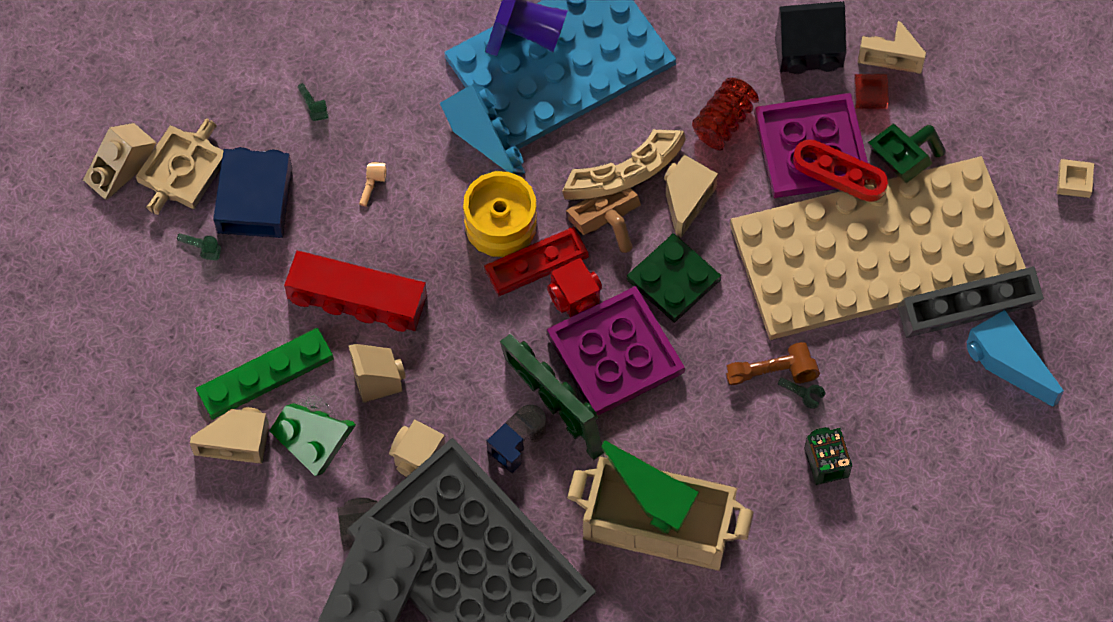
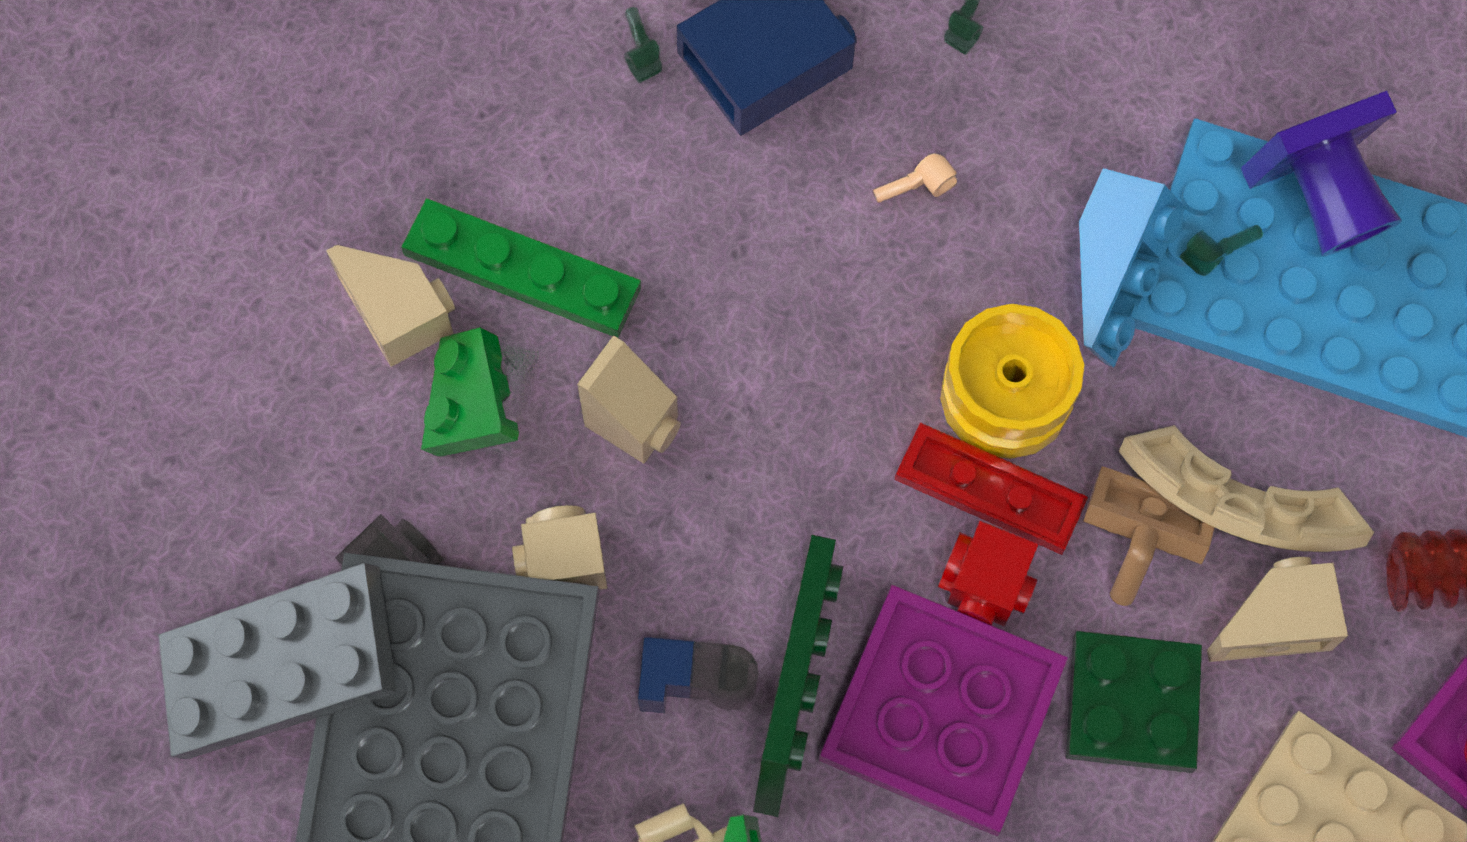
camera: 50 degrees right, 5 degrees up
(355, 291) = (734, 287): red brick -> none
(511, 95) = (1205, 254): none -> clear green hand

